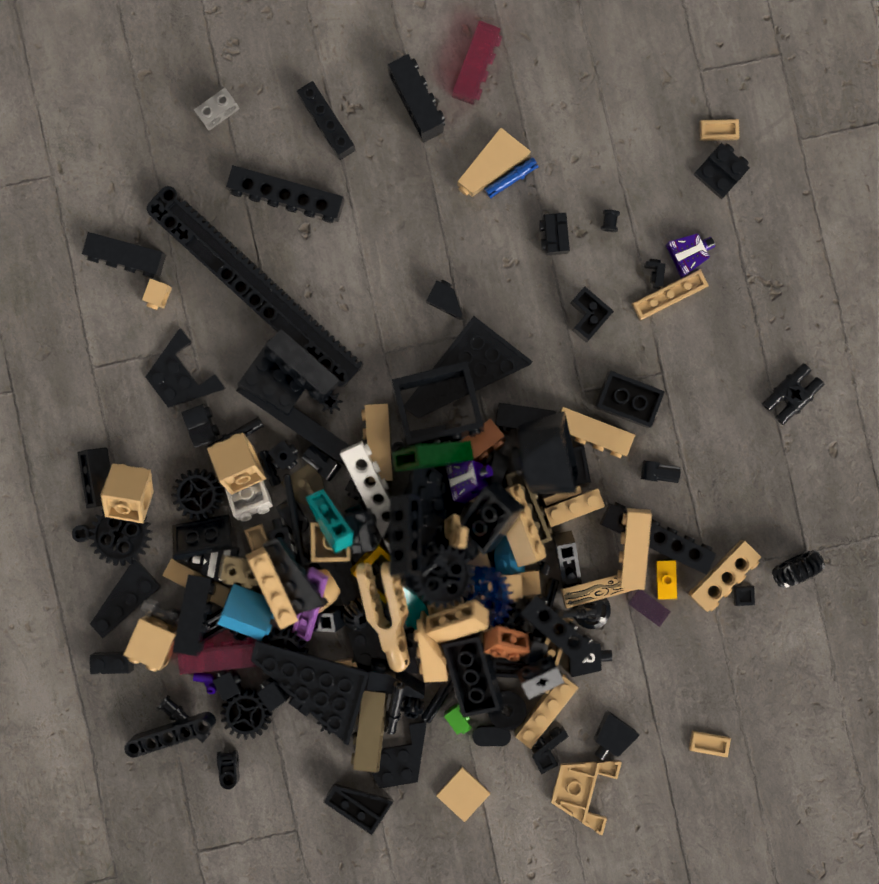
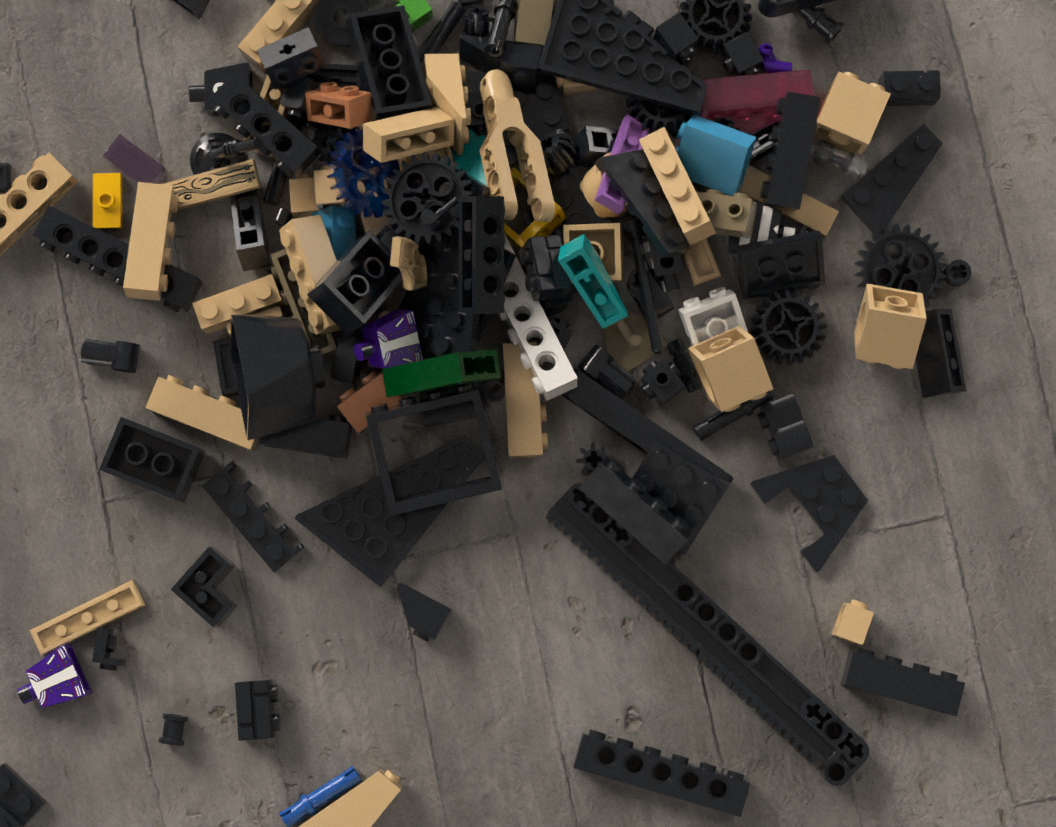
camera: 175 degrees left, 5 degrees down
(563, 361) = (250, 519): none -> black hinge

